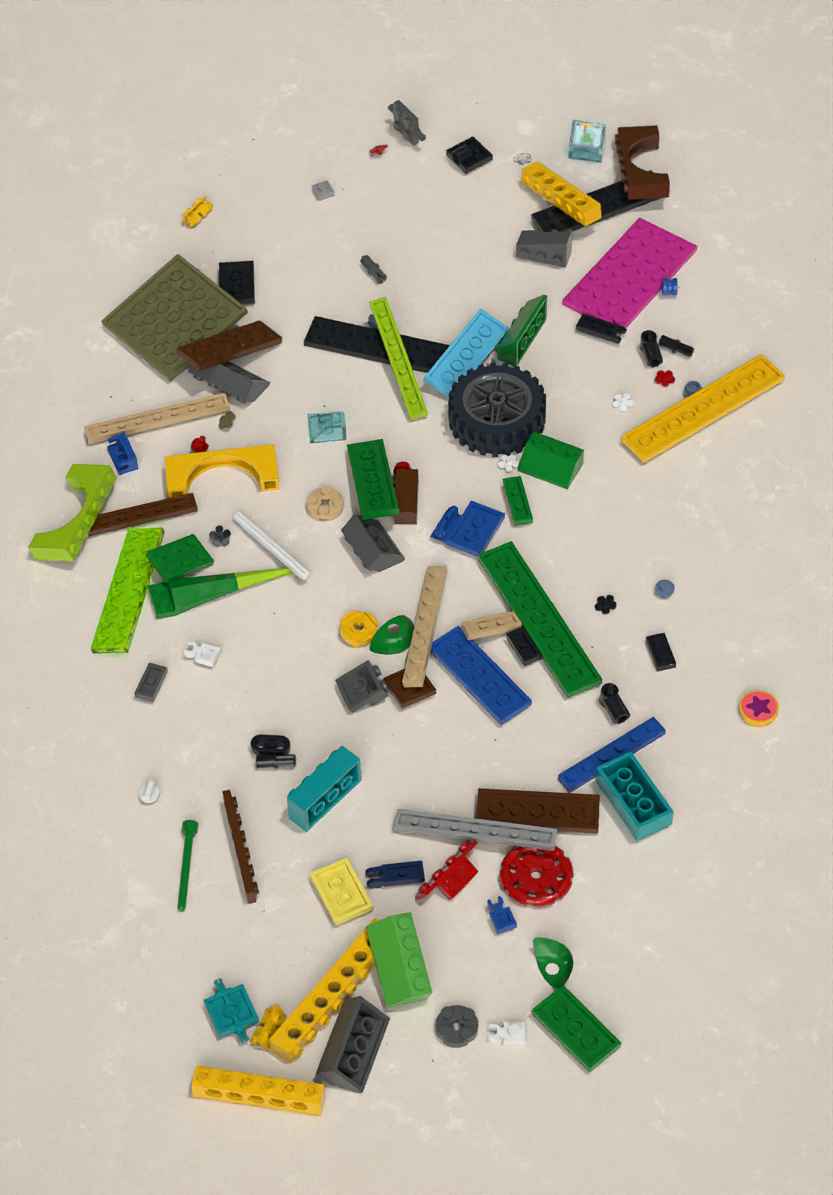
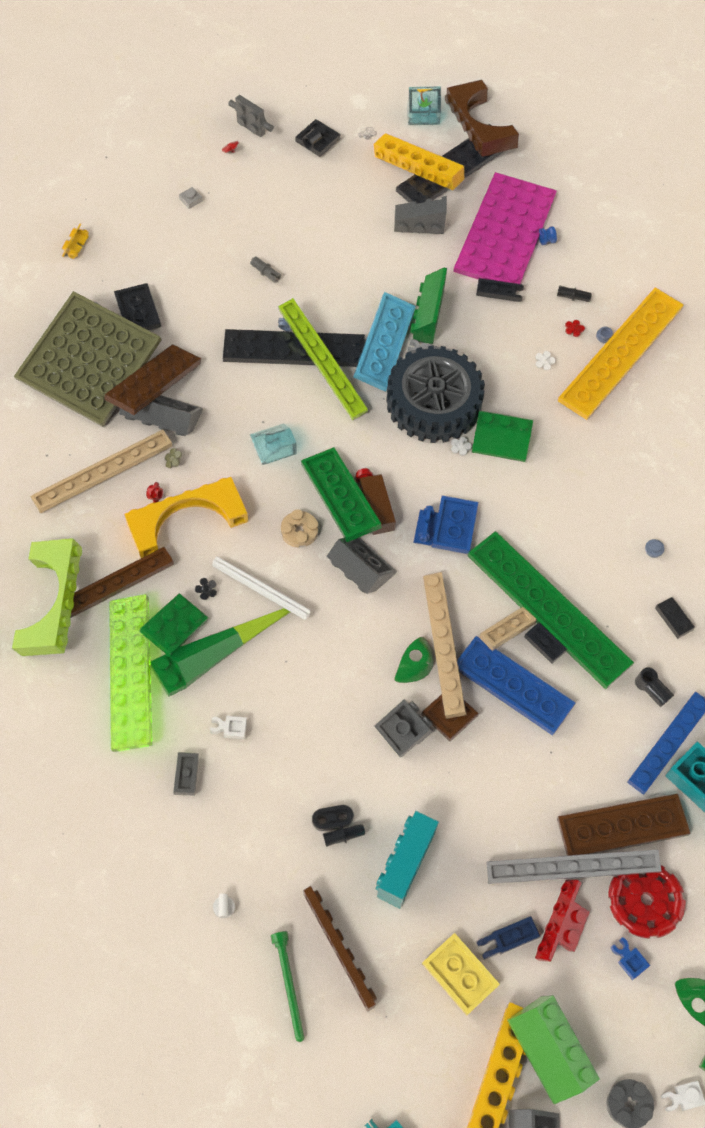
camera: 20 degrees left, 10 degrees up
(122, 454) = (78, 518): blue hinge -> none
(358, 637) = (377, 671): yellow plate -> none
(517, 500) = (484, 485): green plate -> none
(605, 604) = (604, 577): black plant -> none
(650, 348) = (552, 301): black piece -> none

